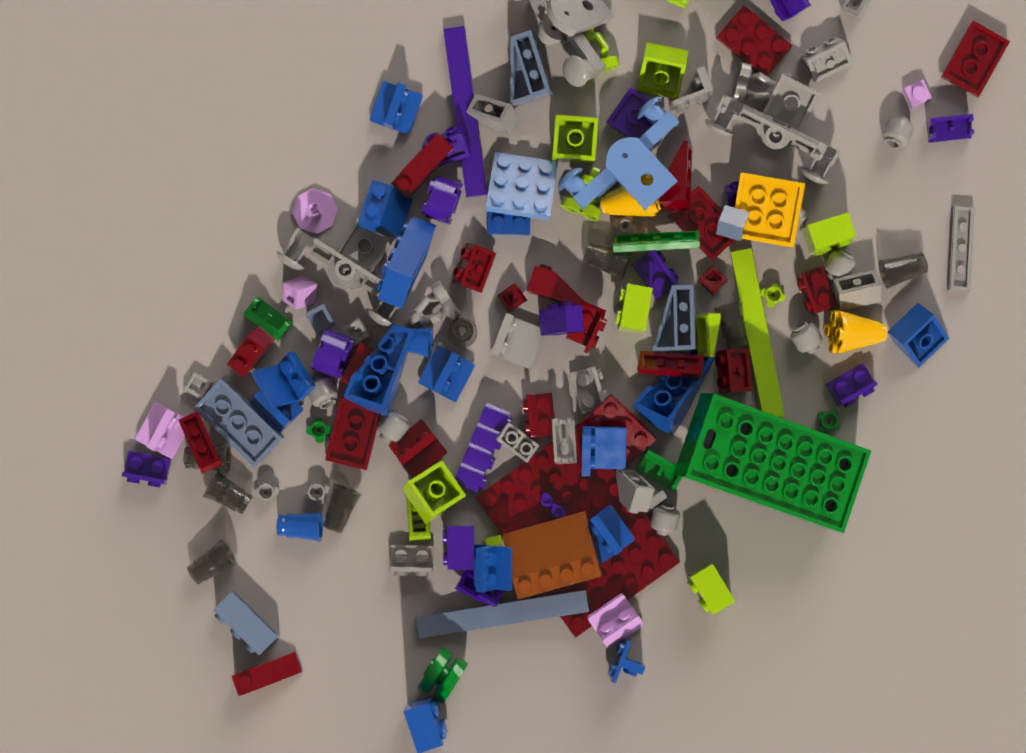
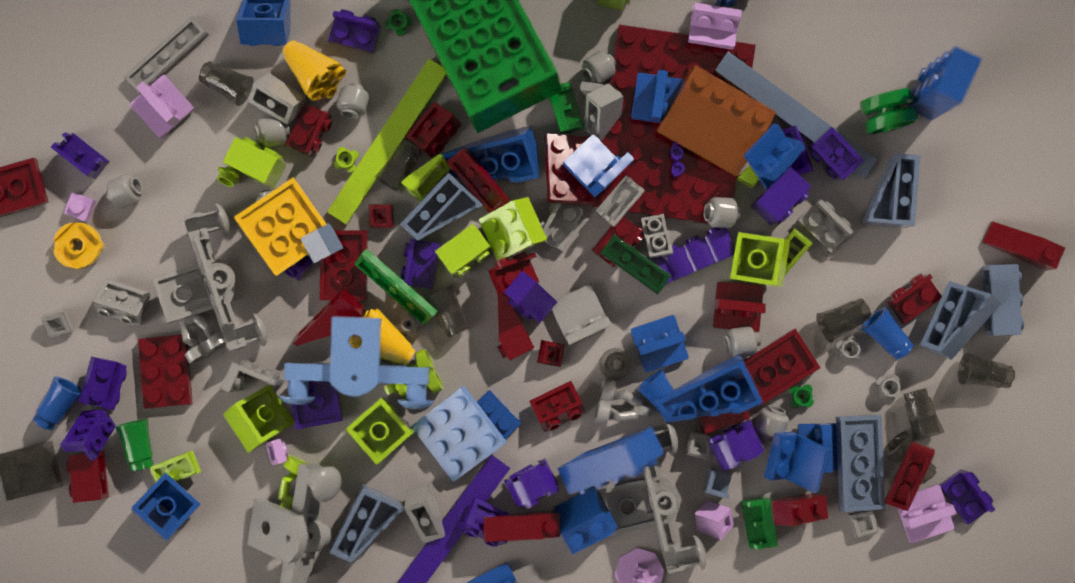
camera: 135 degrees left, 0 degrees up
(265, 578) = (957, 319): none -> sand blue wedge
(305, 568) = (915, 298): none -> dark red bracket
(385, 624) = (895, 194): none -> sand blue wedge
(450, 612) = (835, 154): none -> dark purple bracket
(489, 498) = (722, 212): none -> light grey head
(513, 408) = (635, 264): none -> dark green tile
(616, 354) = (513, 228): none -> lime brick
(629, 60) = (277, 451): none -> lavender plate
(839, 207) = (228, 176): none -> lime plate
(884, 76) = (64, 245): none -> yellow plate
(930, 212) = (161, 105): none -> lavender bracket

